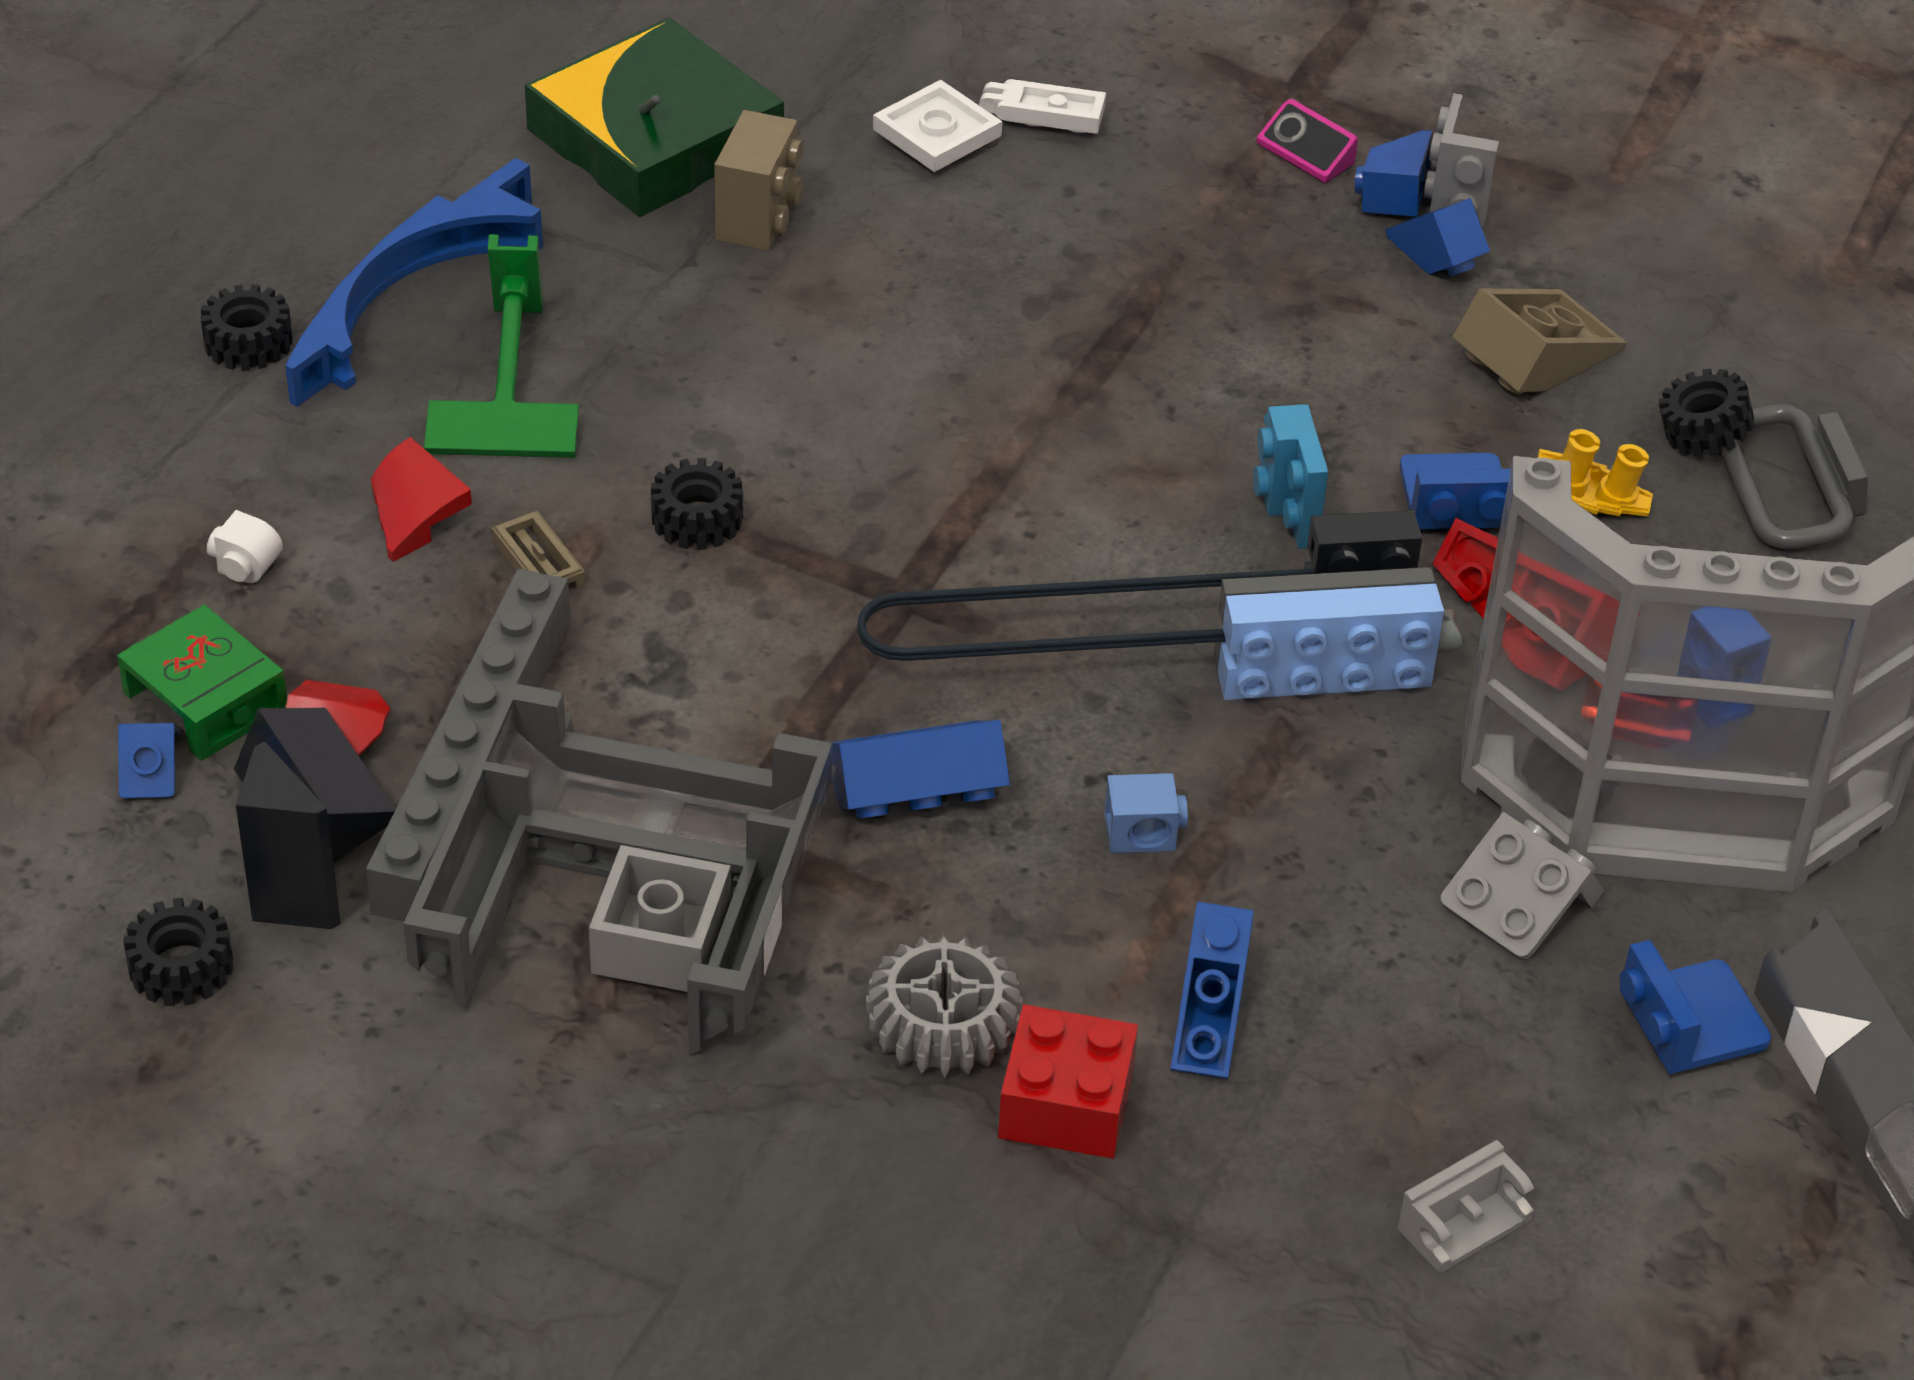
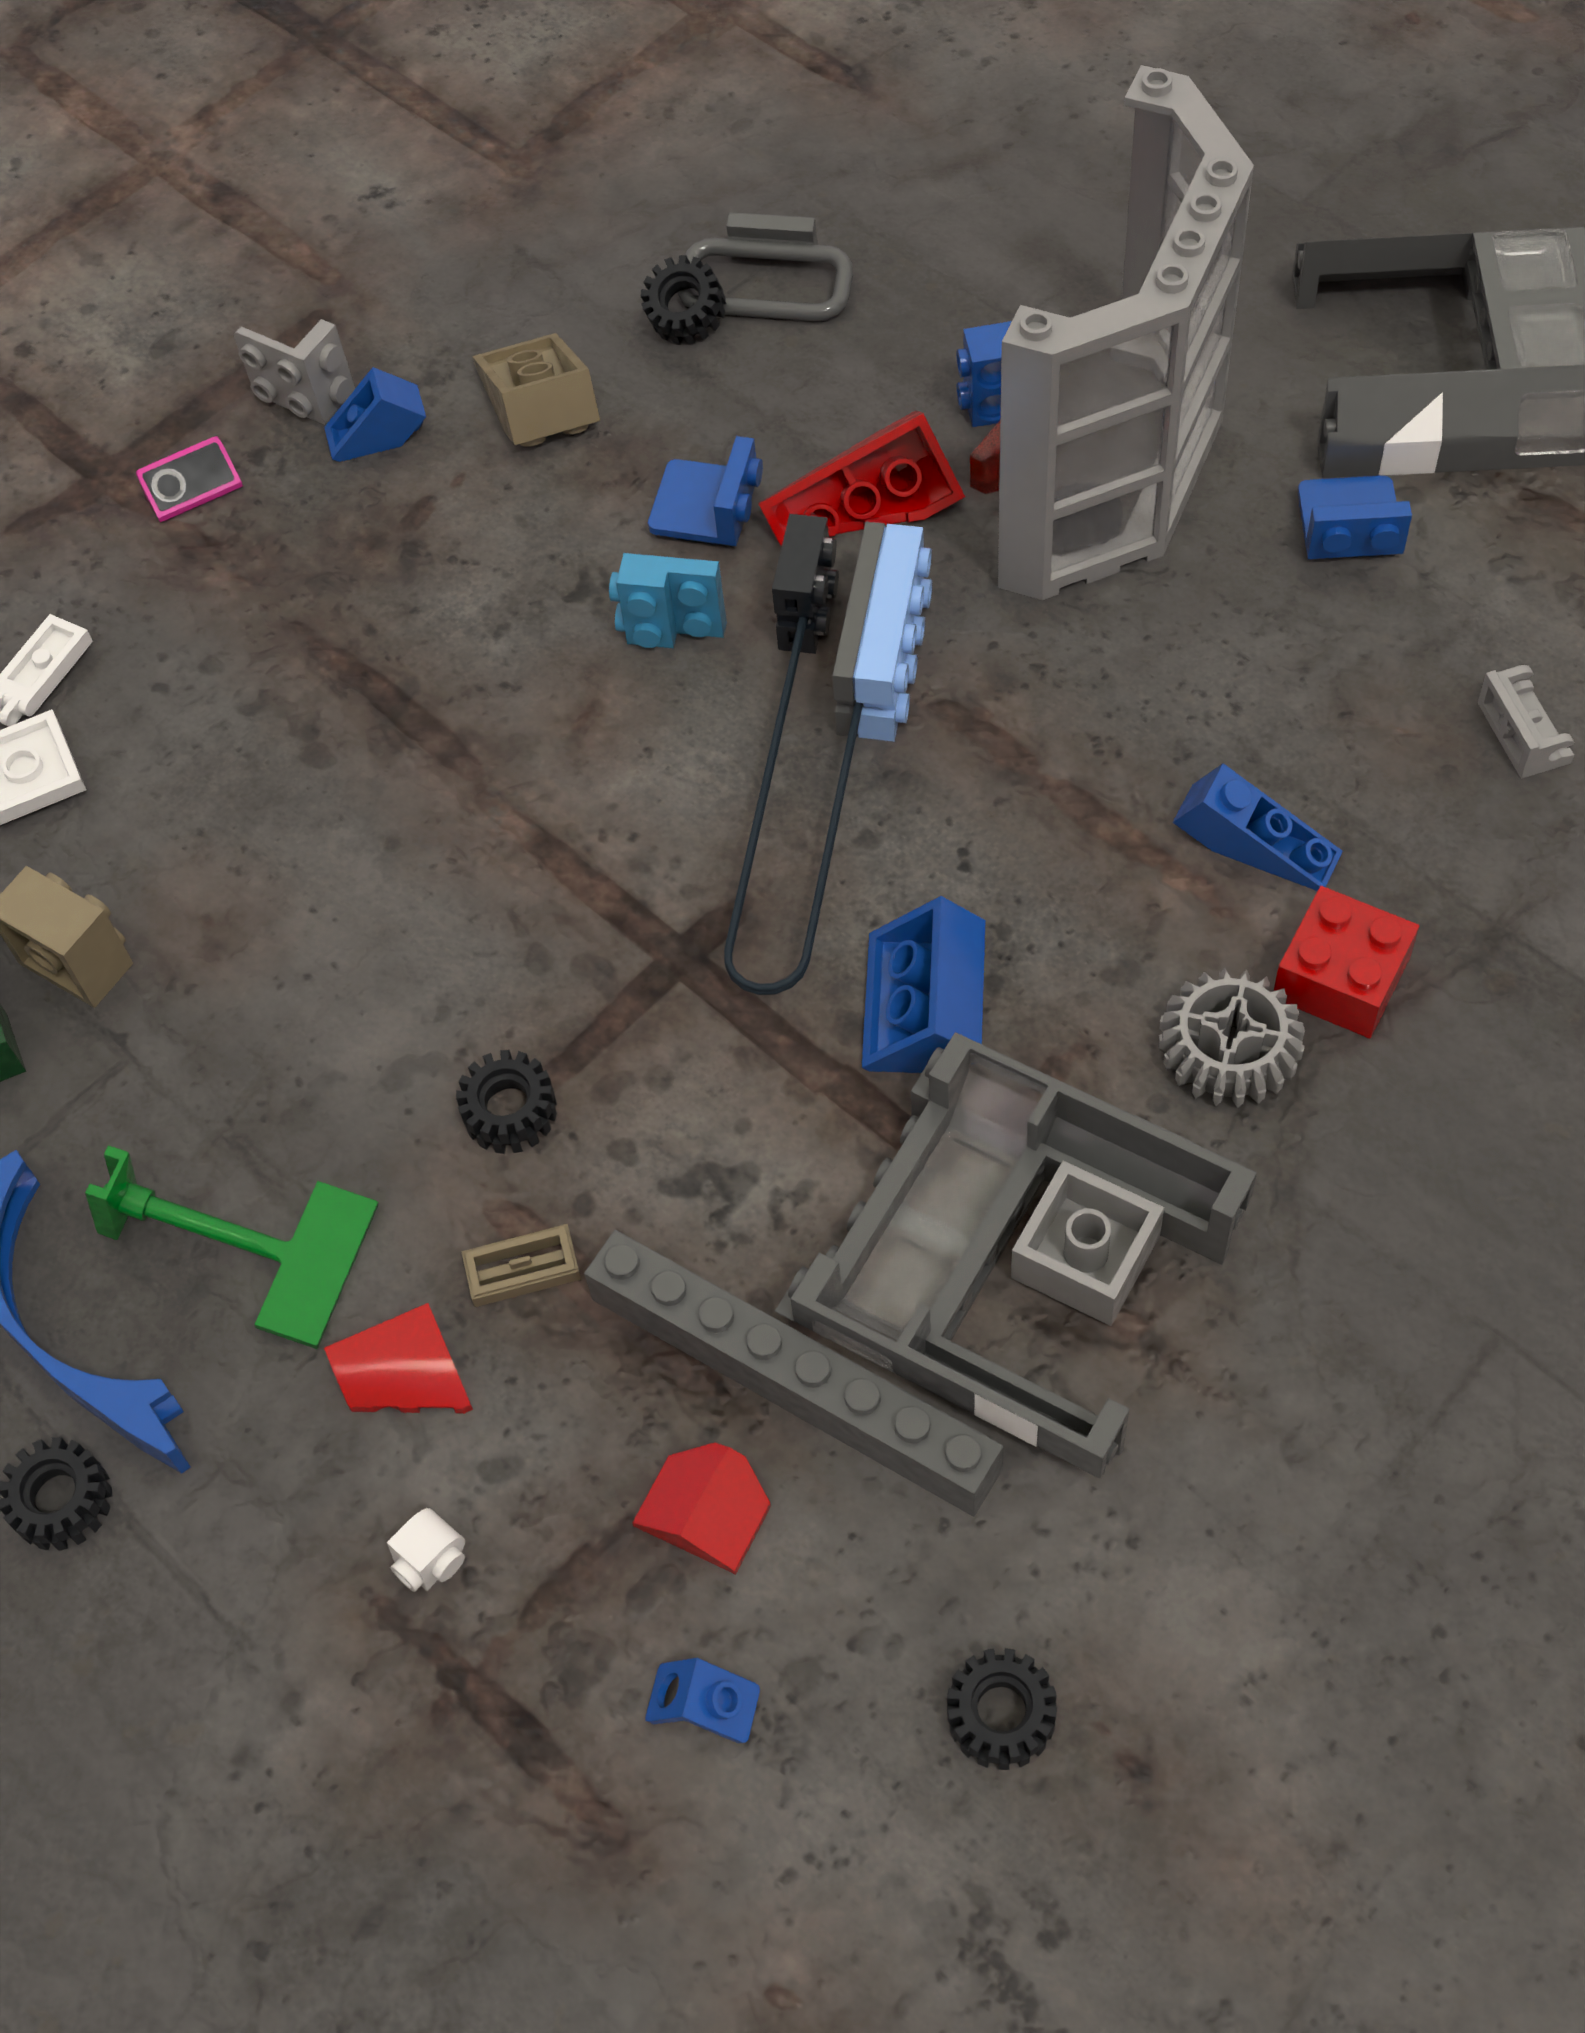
camera: 65 degrees left, 15 degrees up
(205, 677) = (613, 1622): green panel -> none
(285, 846) = (931, 1562): black slope -> none
(328, 766) = (813, 1536): black slope -> none
(1143, 813) = (1038, 830): medium blue brick -> none
(1395, 175) = (281, 422): blue slope -> none
(1519, 885) = (1193, 586): light grey bracket -> none
(1602, 489) = (733, 405): yellow connector -> none

